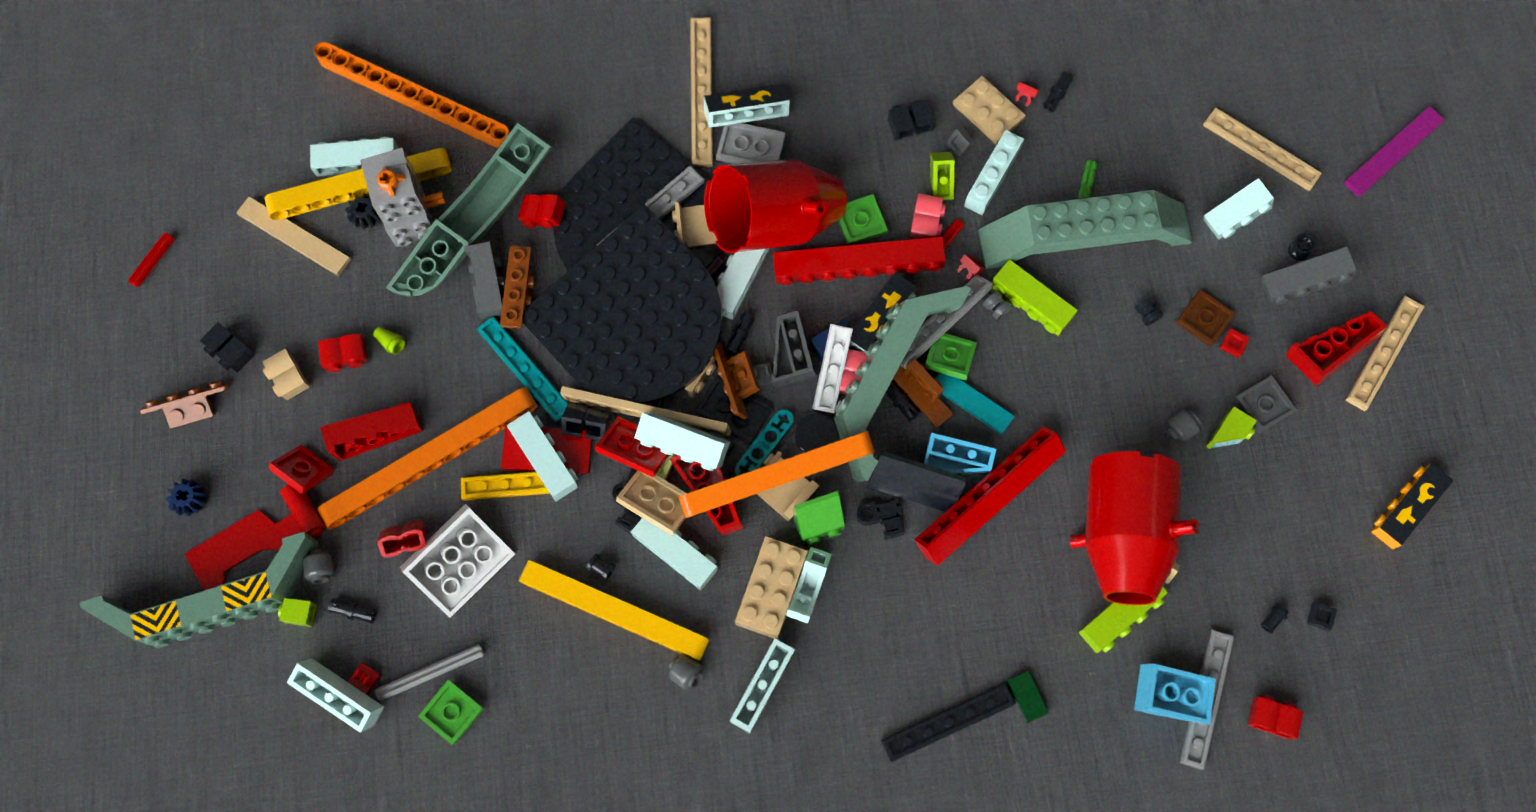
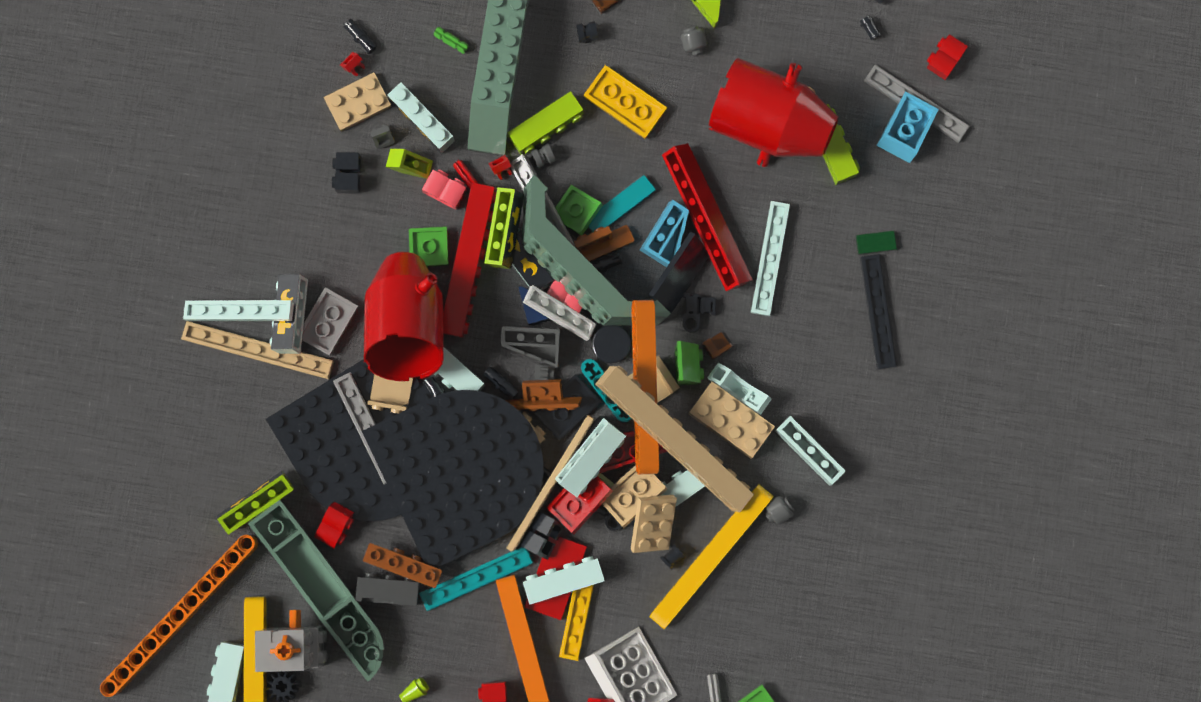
camera: 75 degrees left, 10 degrees up
(544, 129) = (255, 502): none -> lime brick
(630, 532) = (653, 523): none -> tan plate
(727, 523) = (674, 438): none -> tan brick
(734, 57) = (239, 310): none -> light aqua plate
(850, 549) = (717, 345): none -> reddish brown panel
(903, 281) = (504, 228): none -> lime brick
(968, 580) = (770, 258): none -> light aqua plate
(1087, 373) = (625, 102): none -> yellow plate

